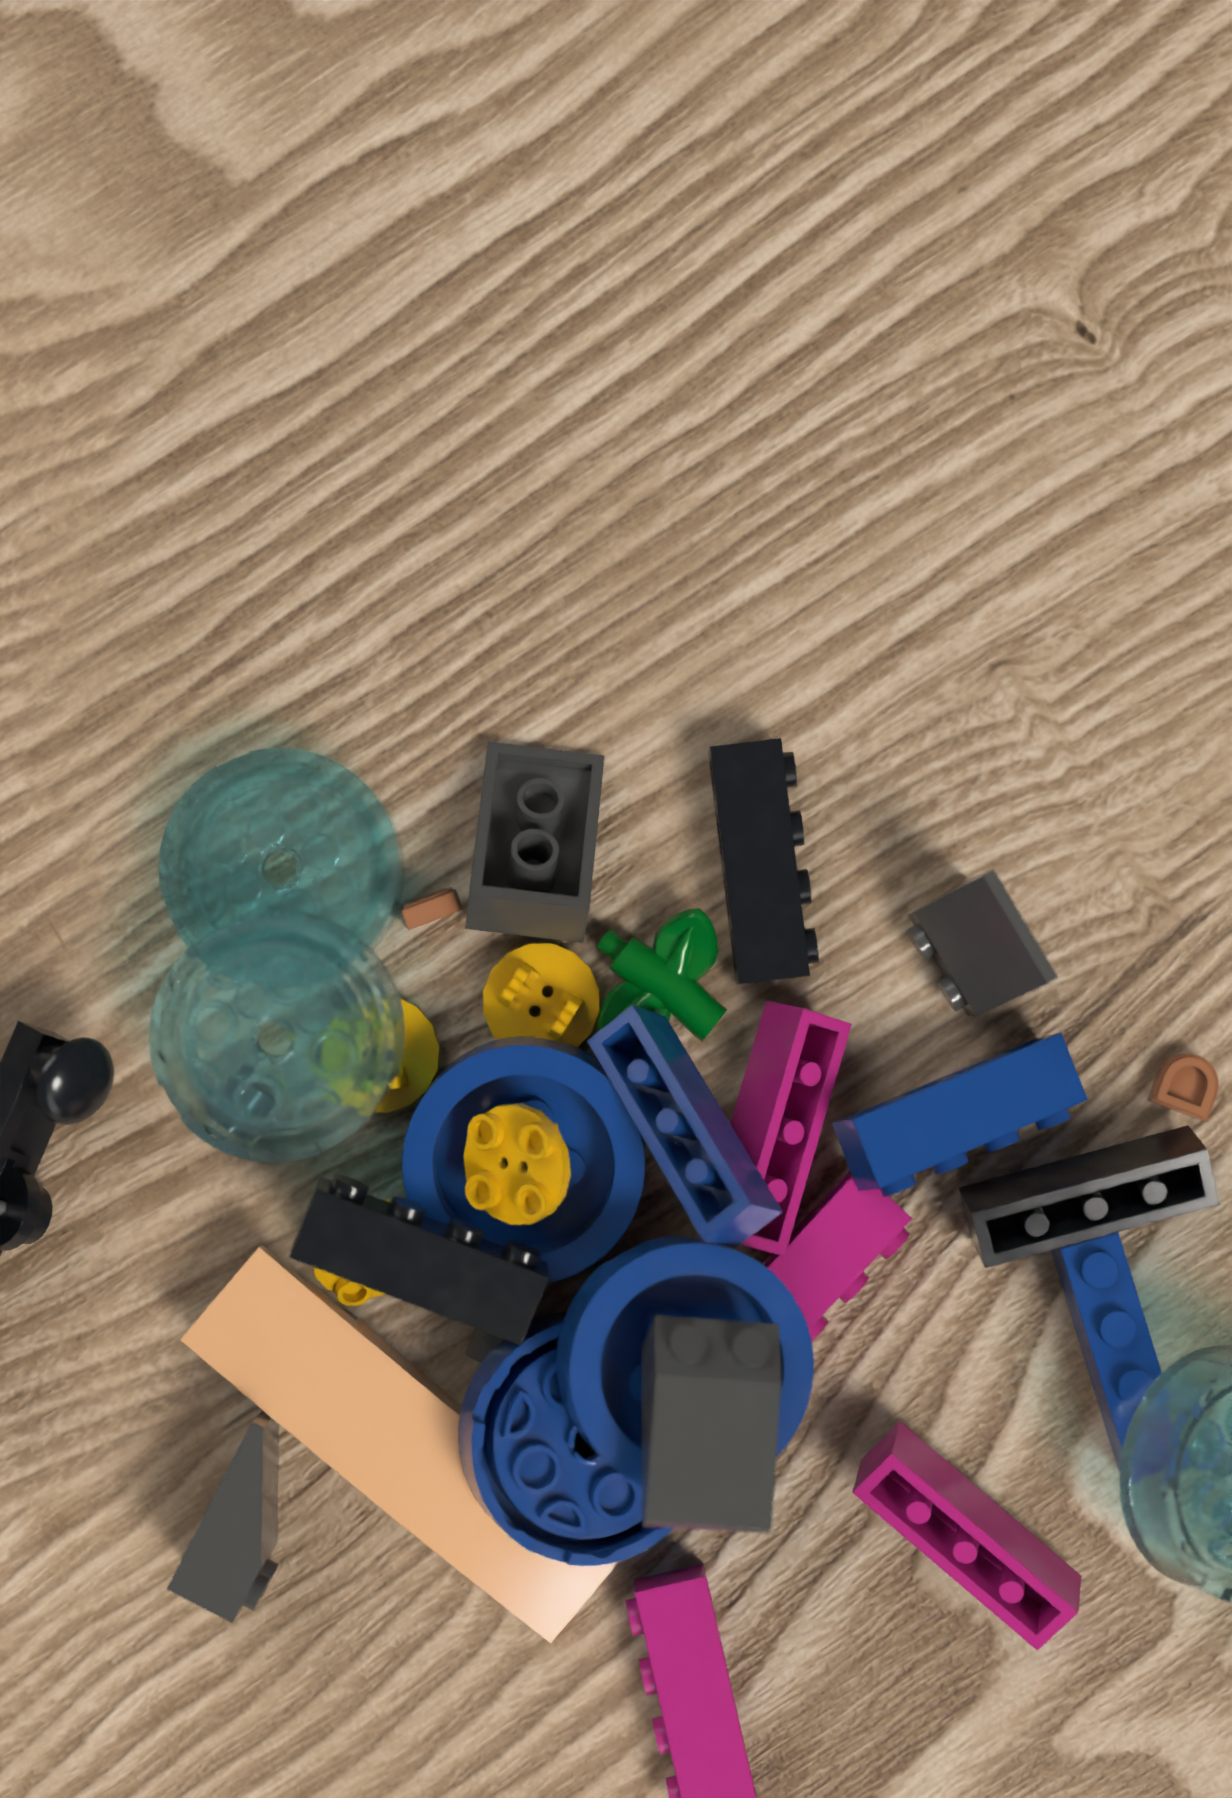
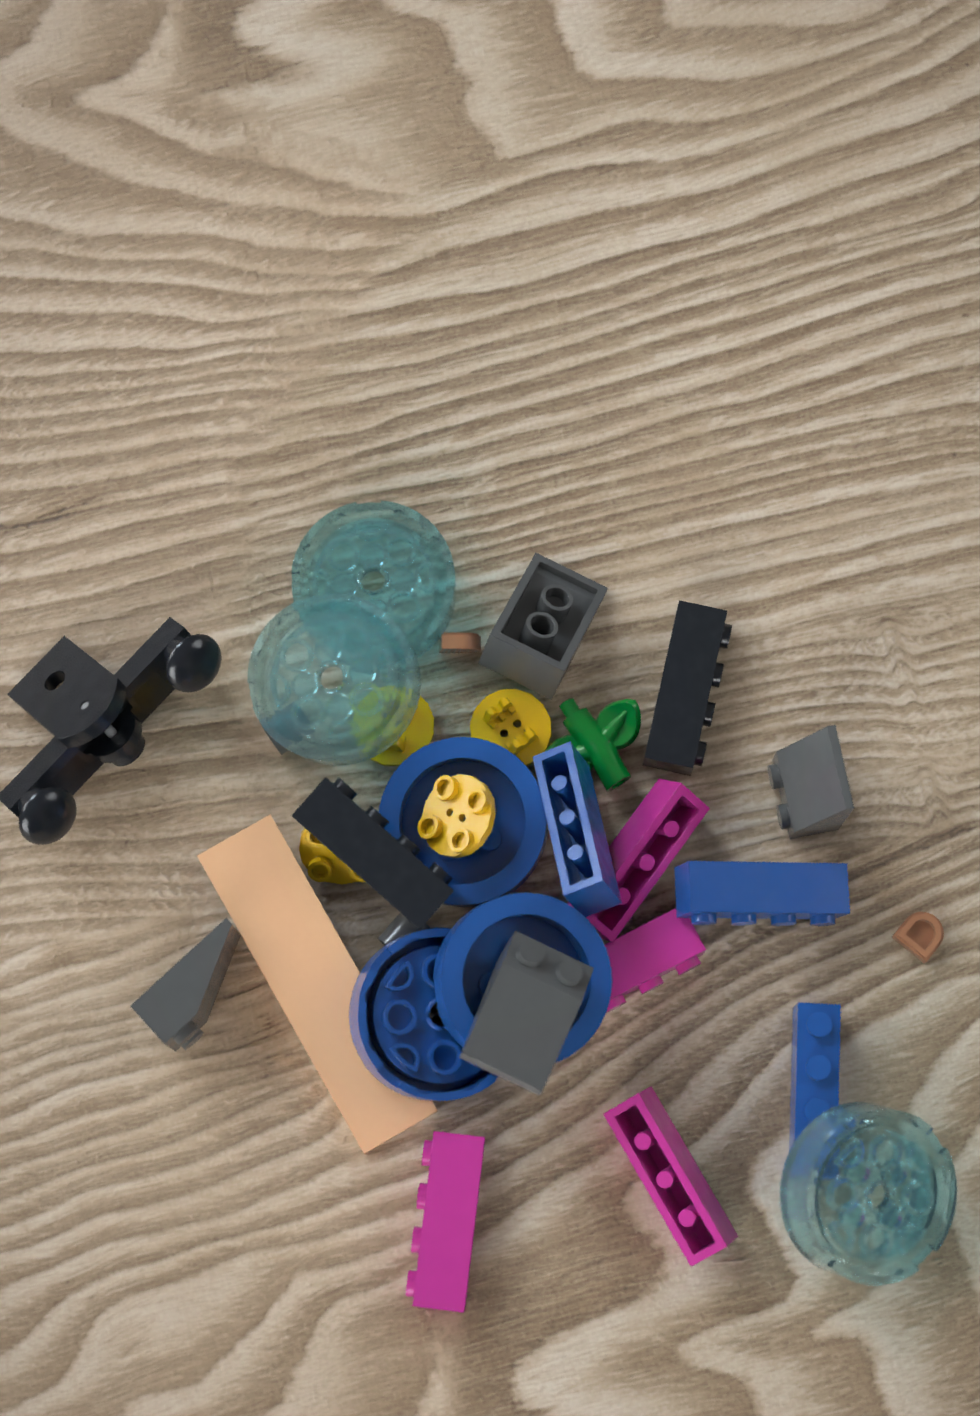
camera: 20 degrees right, 10 degrees down
(1089, 1196) = (829, 978): black brick -> none

